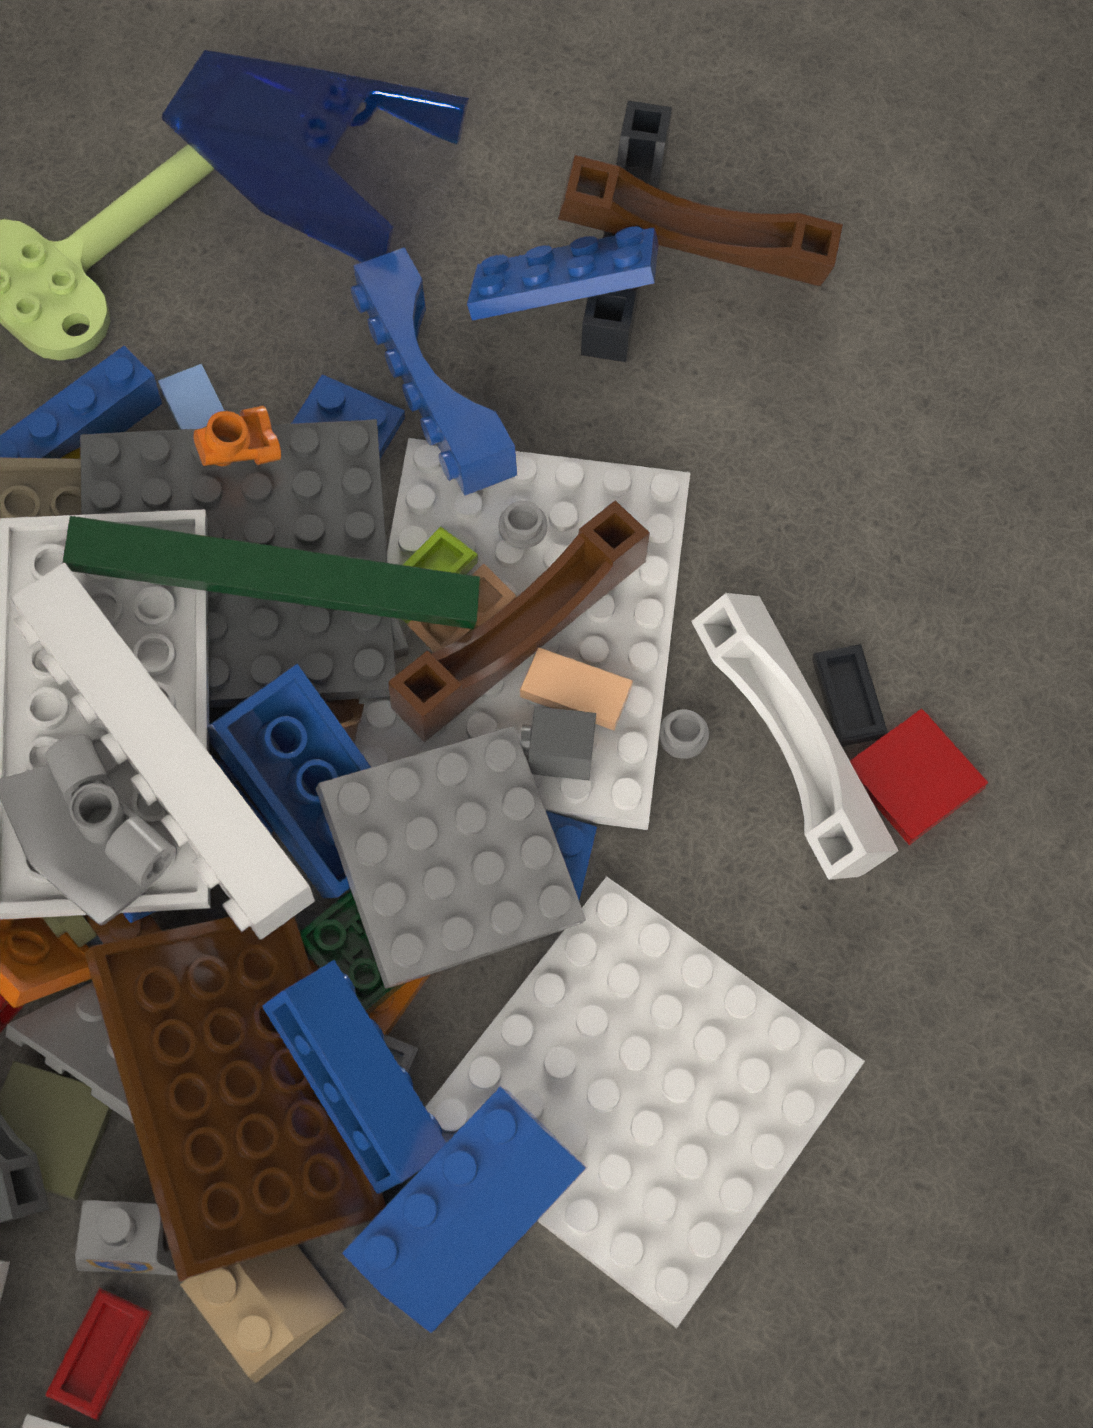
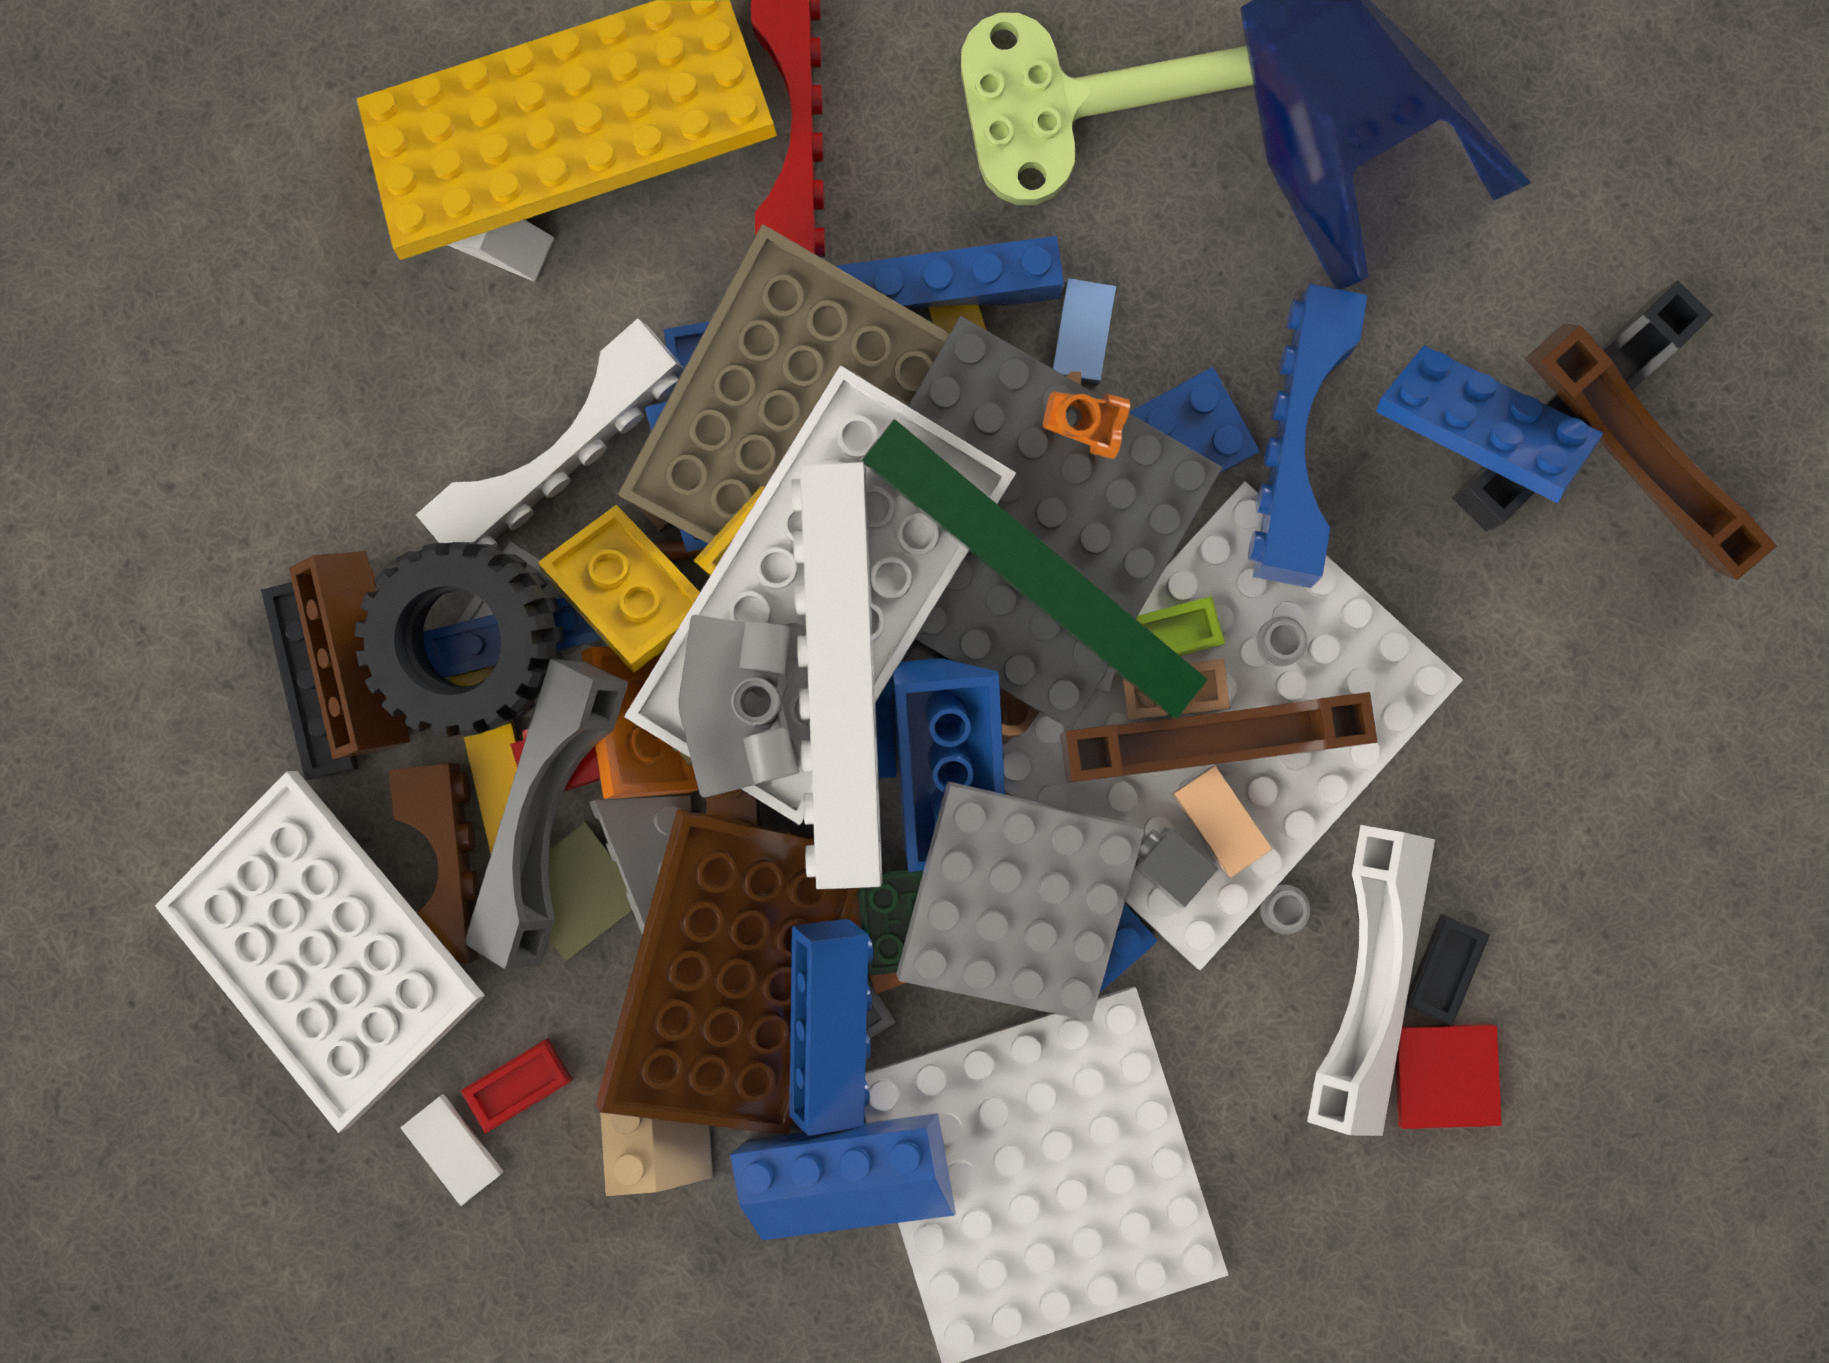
camera: 40 degrees right, 20 degrees up
(122, 1239) = (579, 1022): light grey torso -> none

